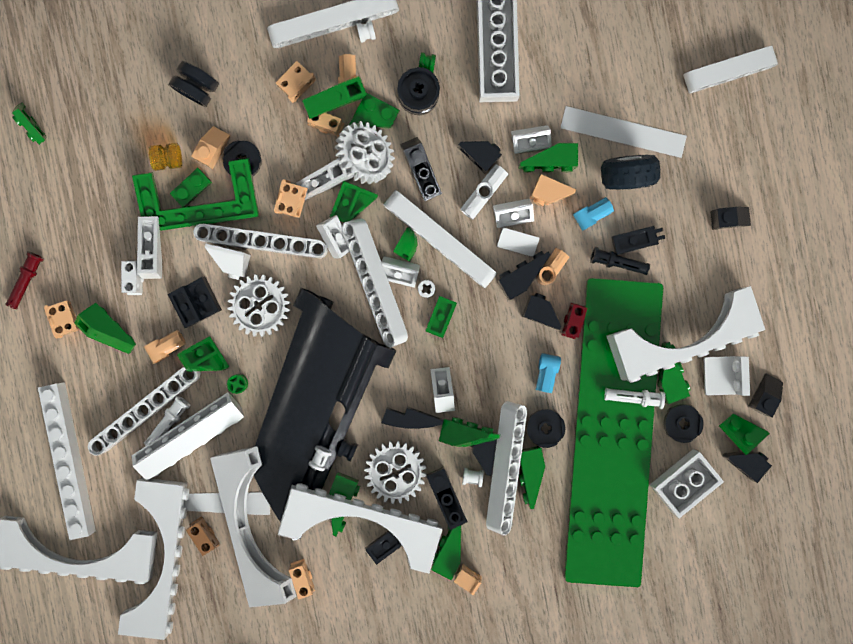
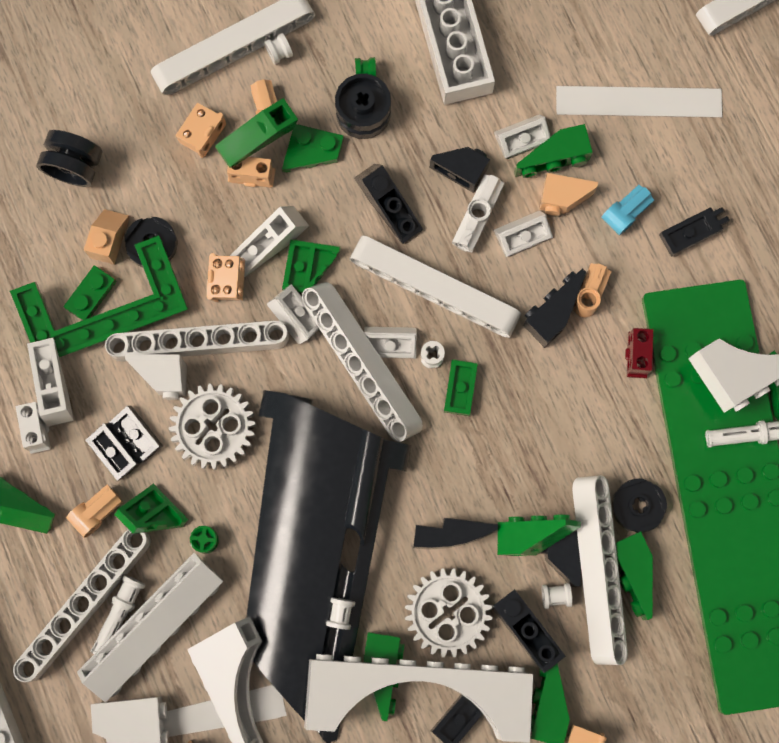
camera: 15 degrees left, 10 degrees down
(169, 156) = (49, 259): clear yellow wheel -> none
(347, 449) = (375, 596): black wheel -> none
(368, 152) = (310, 196): white gear -> none
(407, 245) = (392, 305): green brick -> none
(442, 390) = (486, 485): white slope -> none
(518, 242) = (538, 267): white slope -> none
(541, 311) = (593, 351): black slope -> none
(548, 368) = (622, 421): medium azure piece -> none
(611, 259) = (665, 261): black pin -> none
(630, 172) = (662, 142): black wheel -> none

